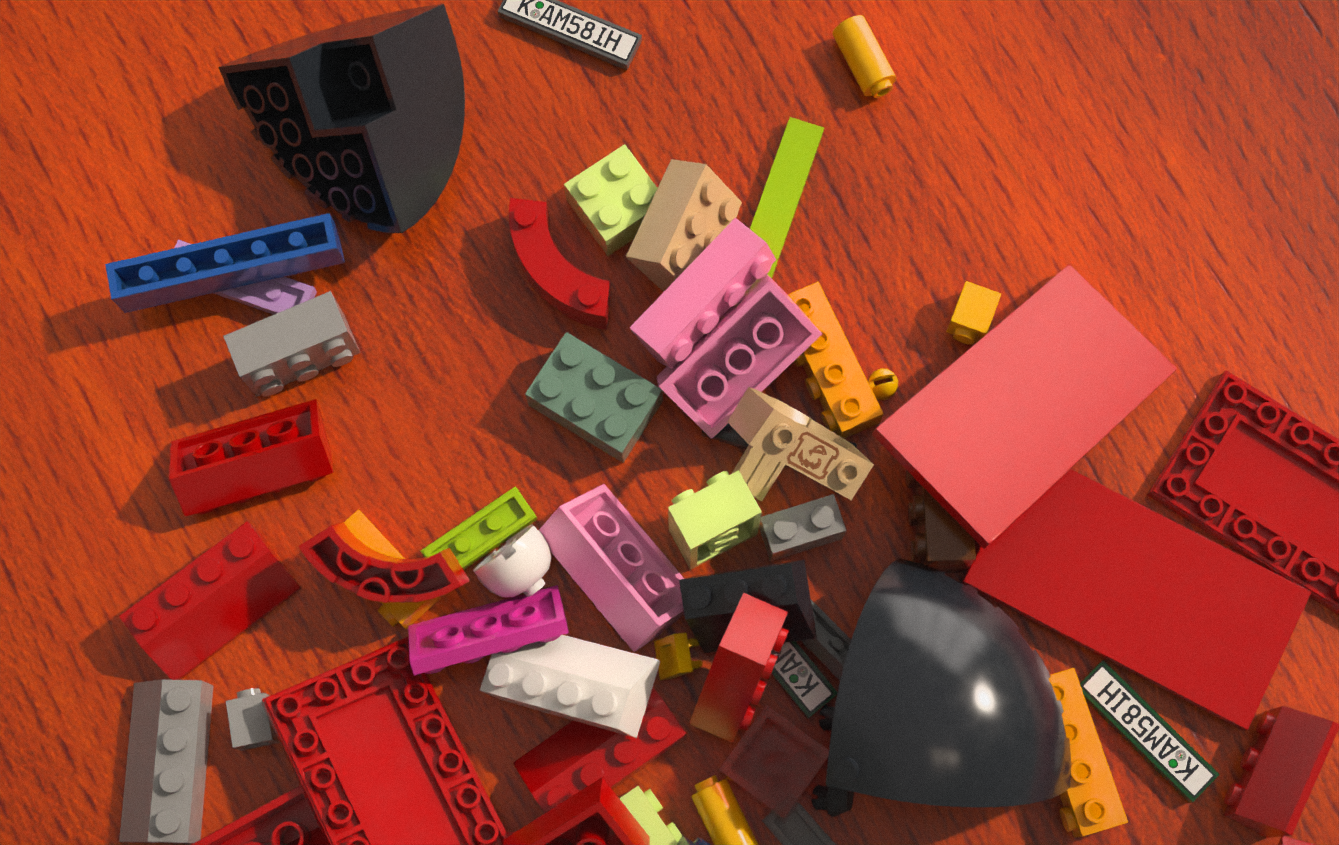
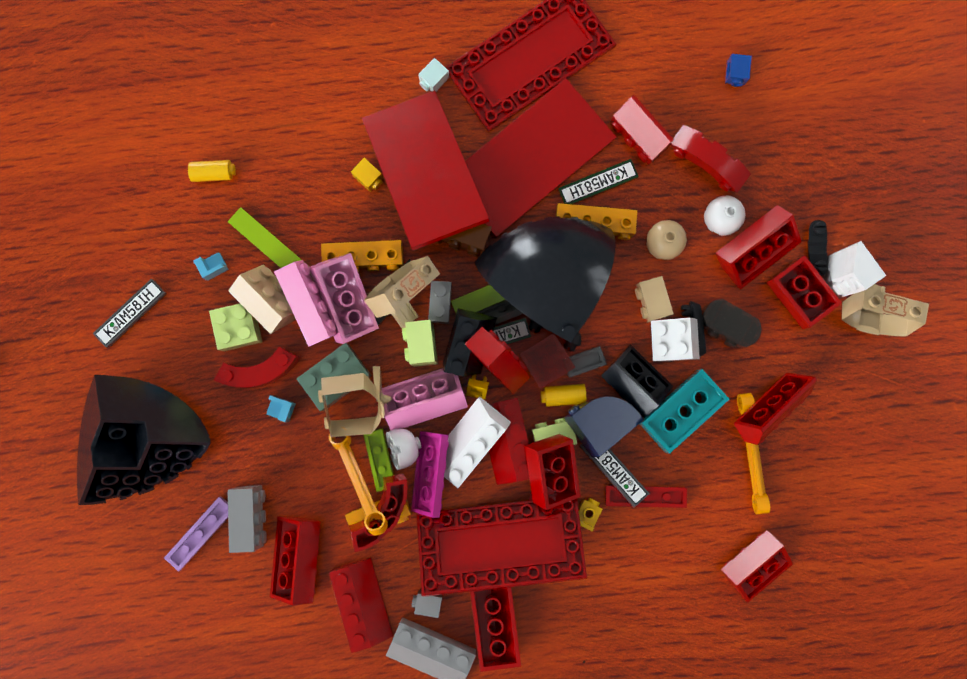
camera: 70 degrees left, 10 degrees up
(224, 263) = (188, 538): blue brick -> none
(426, 506) = (360, 485): none -> light orange piece
(504, 330) = (280, 408): none -> medium azure panel
(595, 423) = (348, 383): none -> tan piece
(701, 121) = (211, 266): none -> medium azure panel
(833, 592) = (478, 299): none -> lime tile
(885, 390) = (388, 233): yellow hinge -> none
(1201, 356) = (433, 76): none -> light aqua brick

